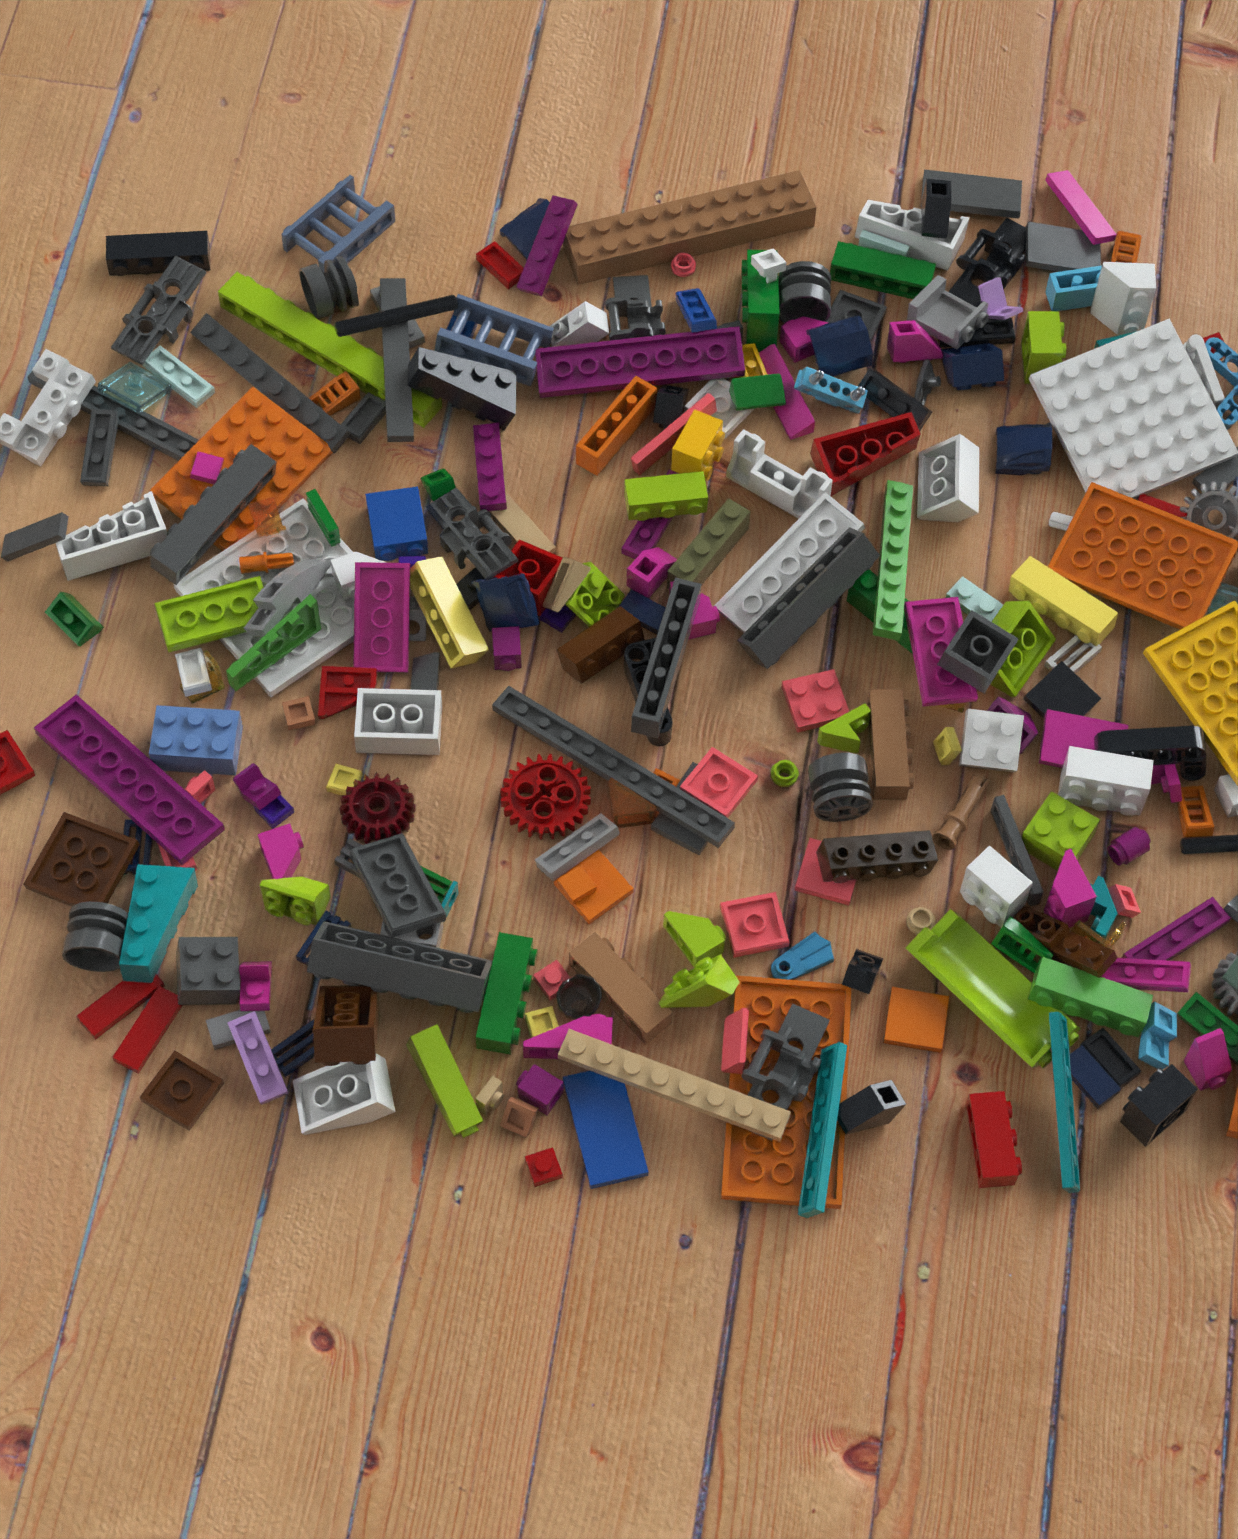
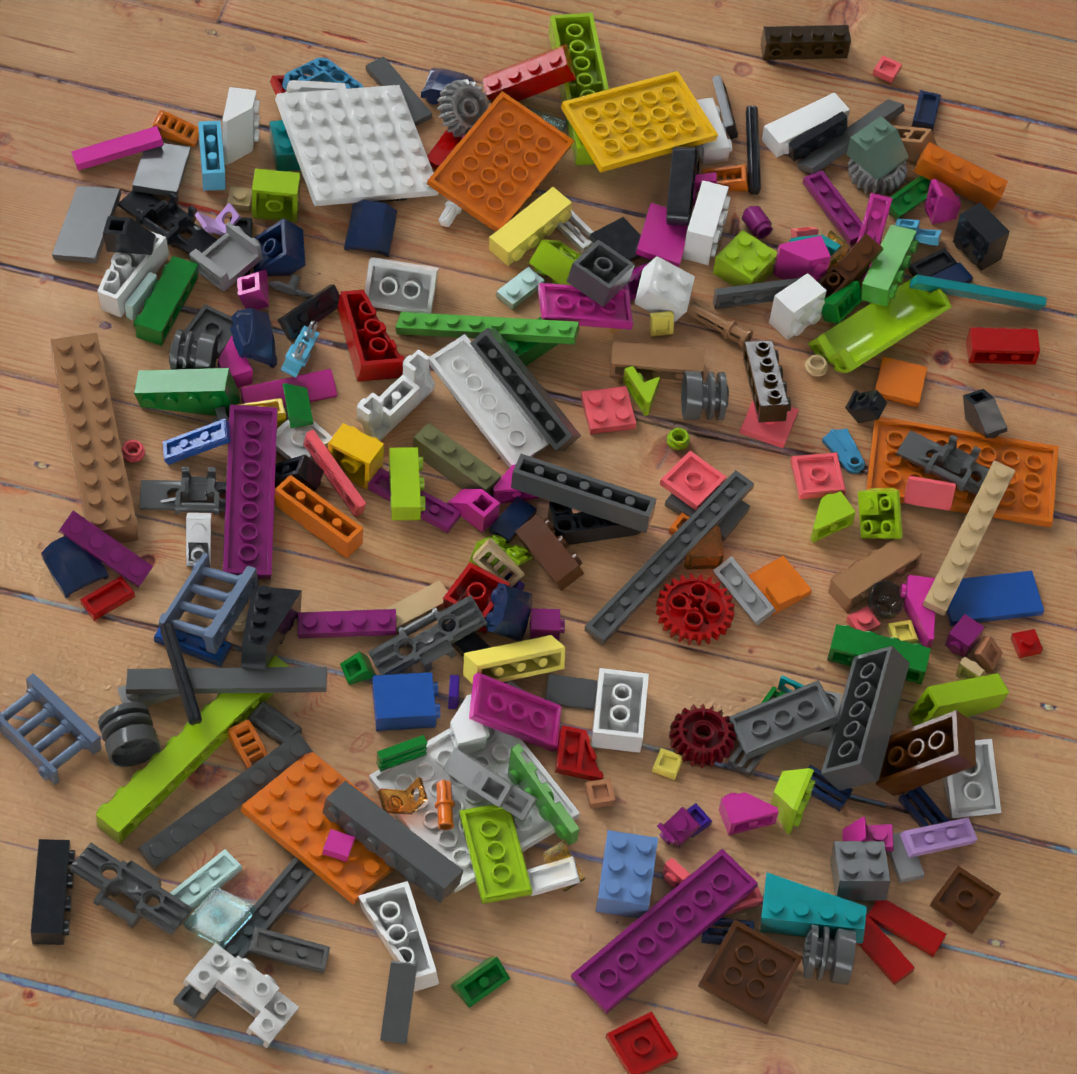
camera: 90 degrees left, 5 degrees down
(768, 264) = (172, 367): white tile -> none
(822, 1130) = (1005, 444): teal tile -> none

